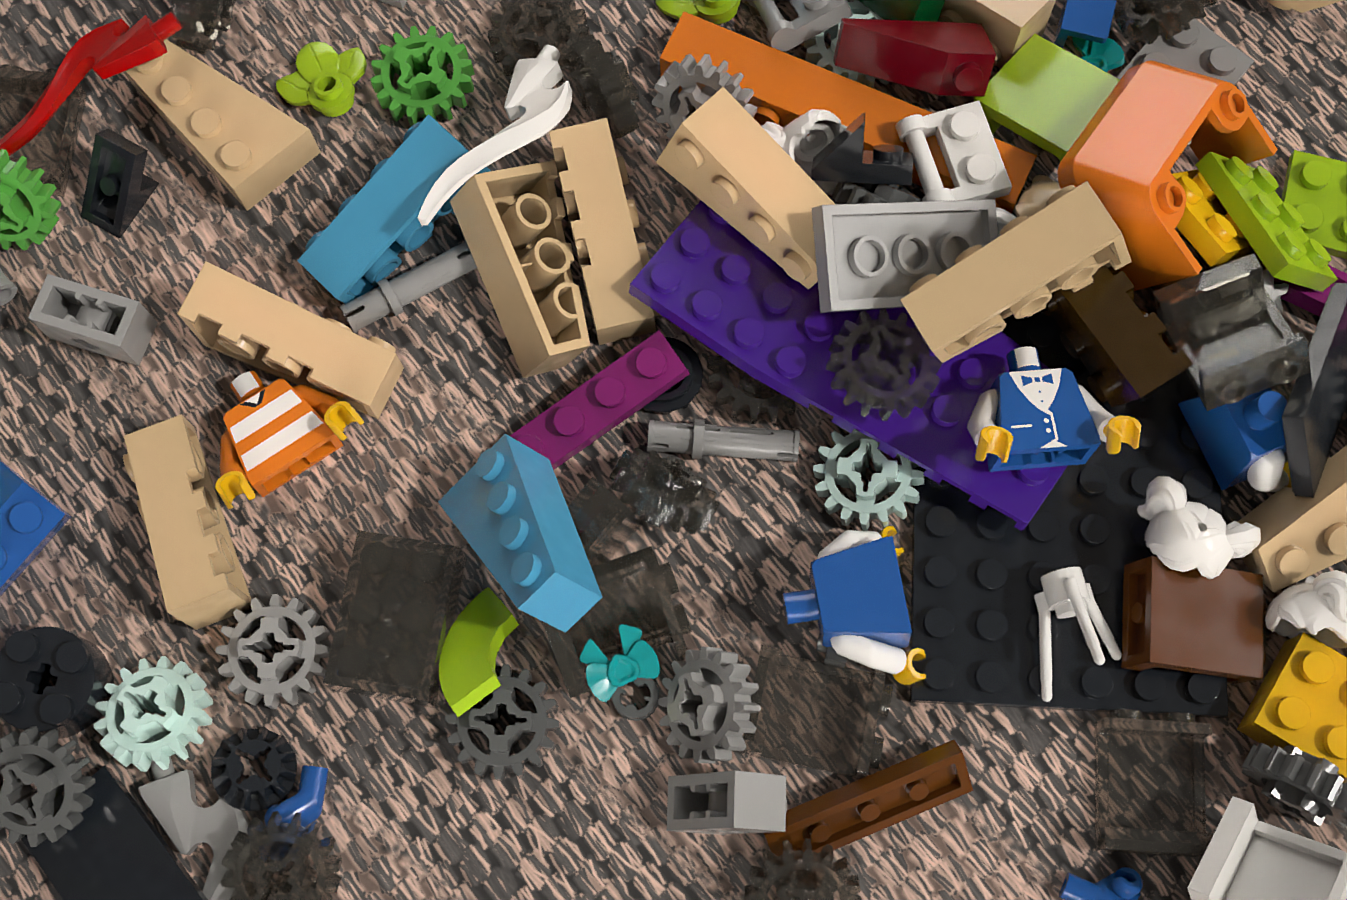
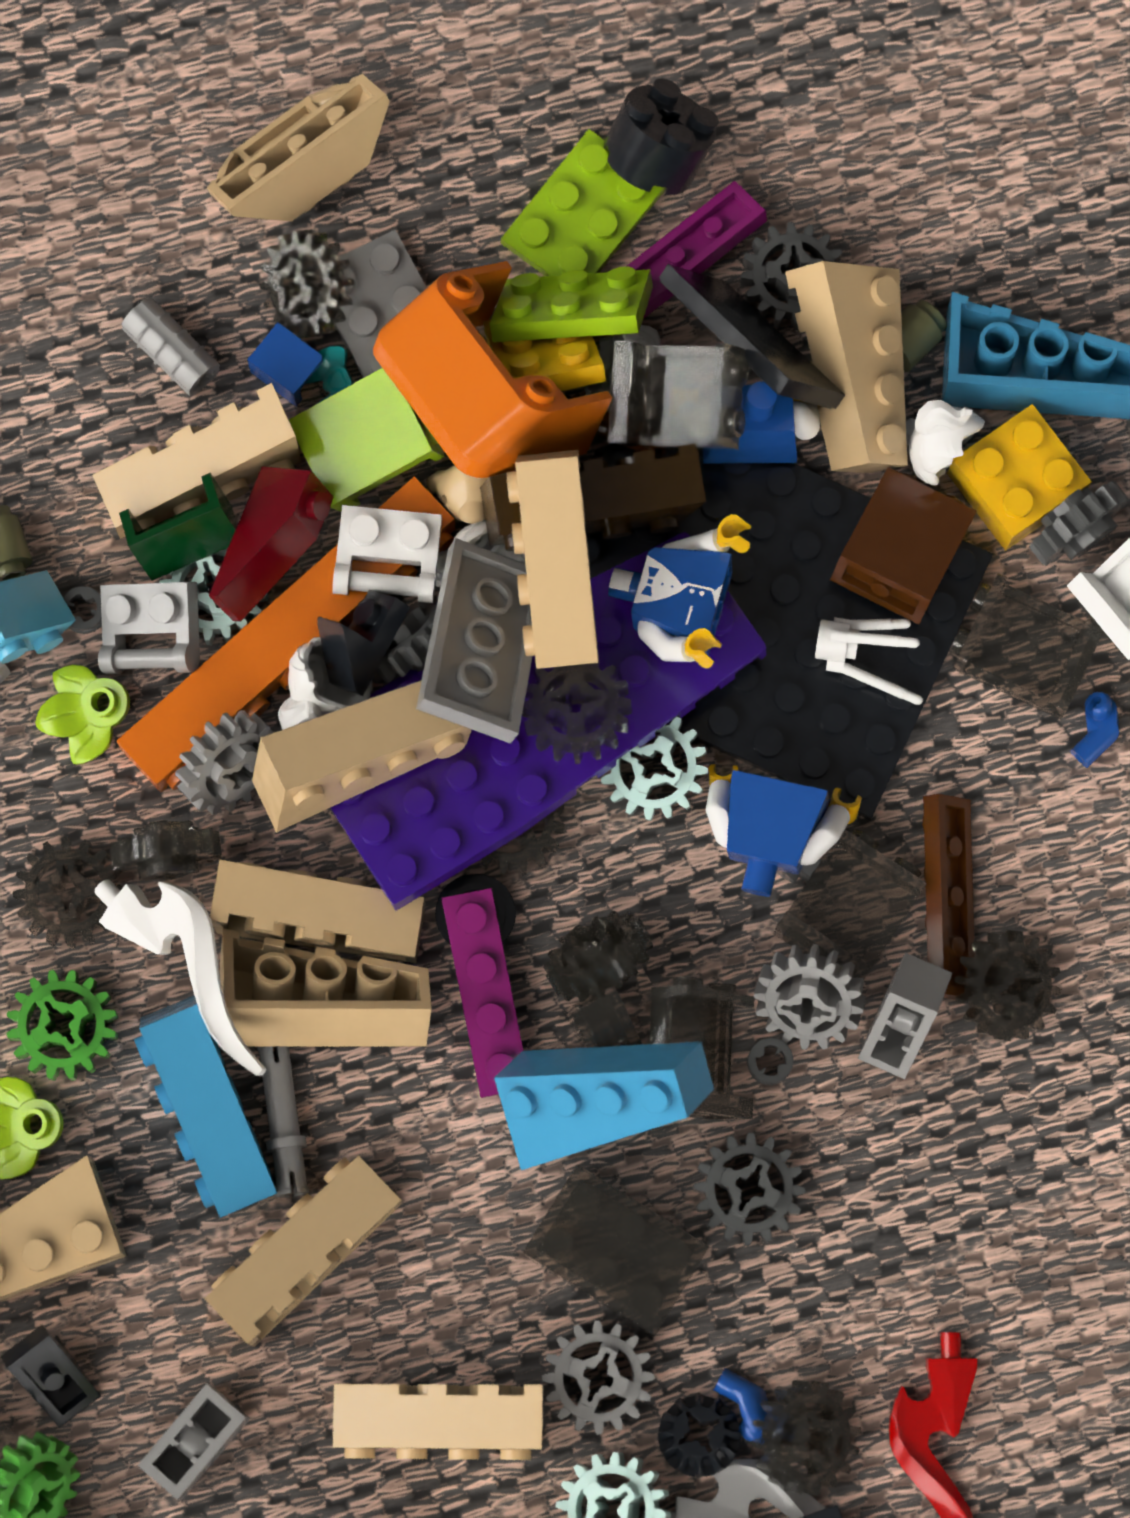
camera: 75 degrees left, 5 degrees up
(277, 434) = (385, 1300): torso -> none
(471, 651) = (672, 1190): lime tile -> none
(636, 661) = (744, 1046): teal piece -> none
(714, 440) = (555, 901): light grey pin -> none
(1191, 534) = (833, 514): white hair -> none

